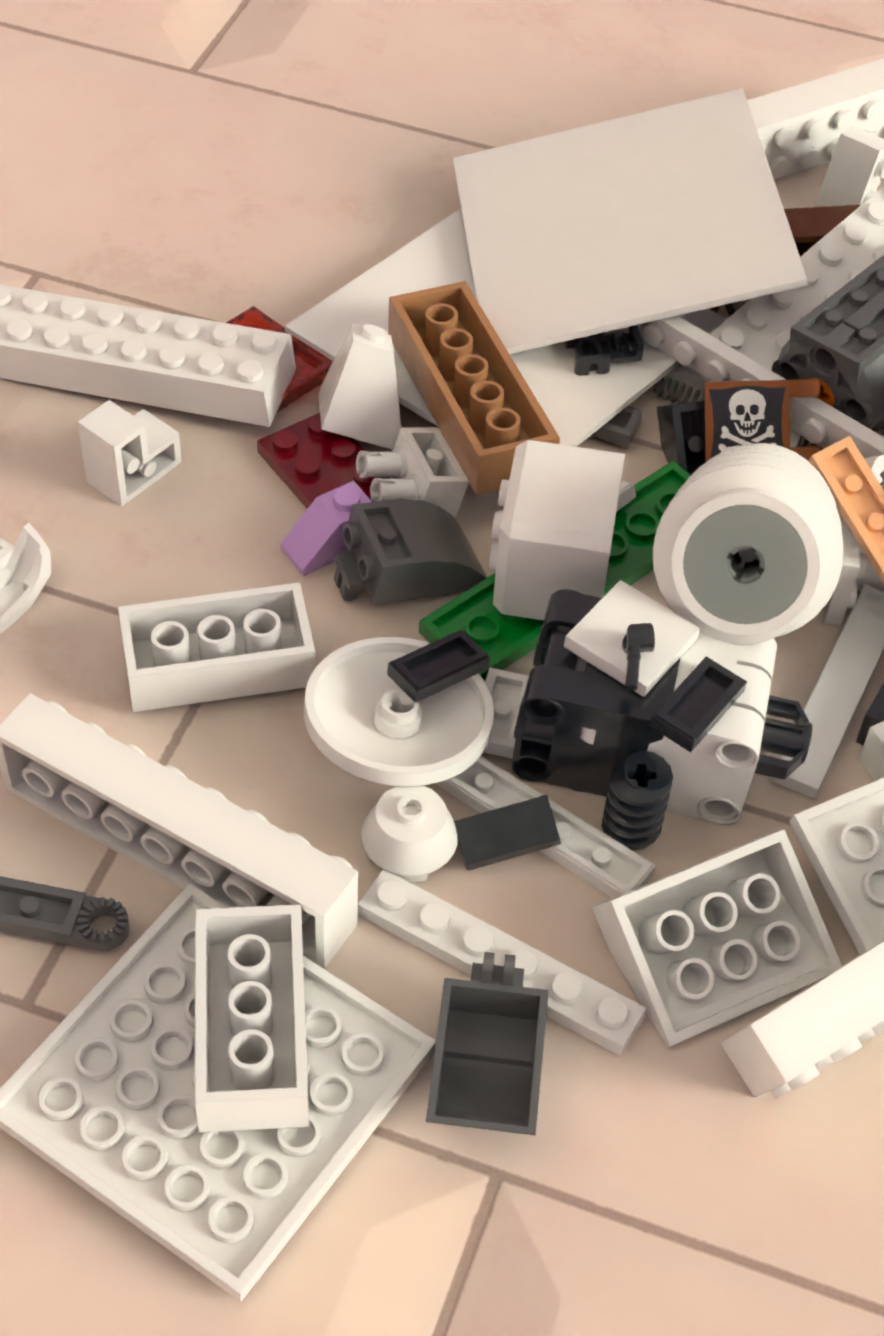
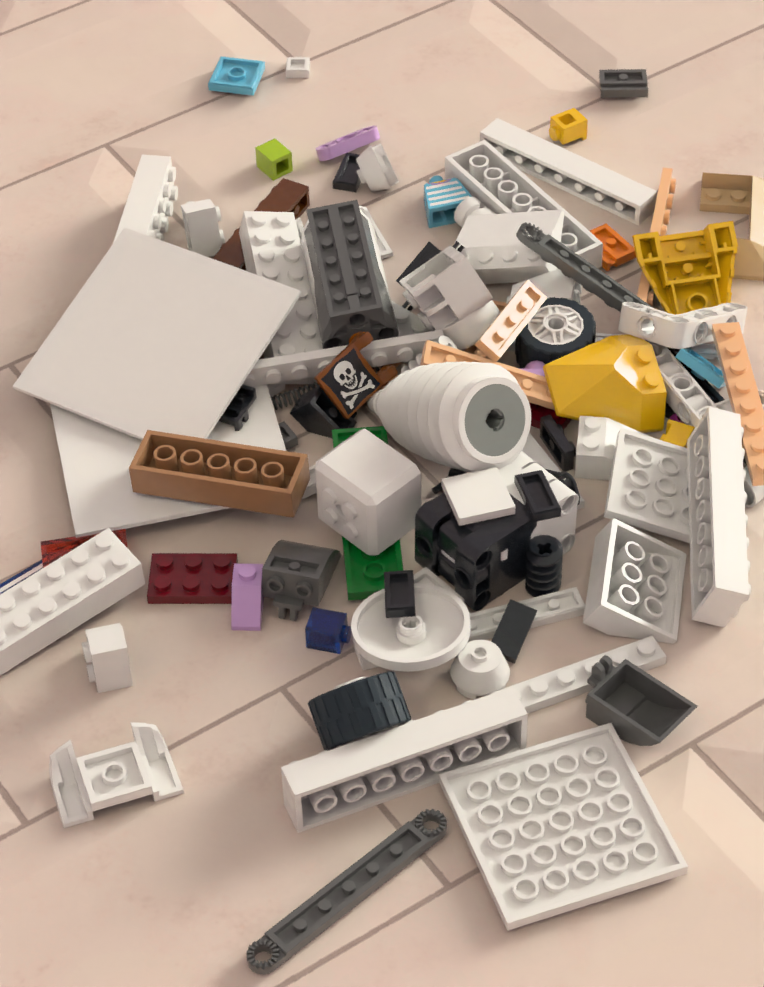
camera: 50 degrees left, 5 degrees down
(195, 727) = (359, 709): none -> black wheel
(217, 646) = (296, 672): white brick -> none
(250, 1019) = (553, 778): white brick -> none
(338, 624) = (327, 630): none -> clear blue brick
(361, 388) = (170, 522): white slope -> none
(420, 470) = (248, 534): white brick -> none
(637, 640) = (489, 494): black hand -> none

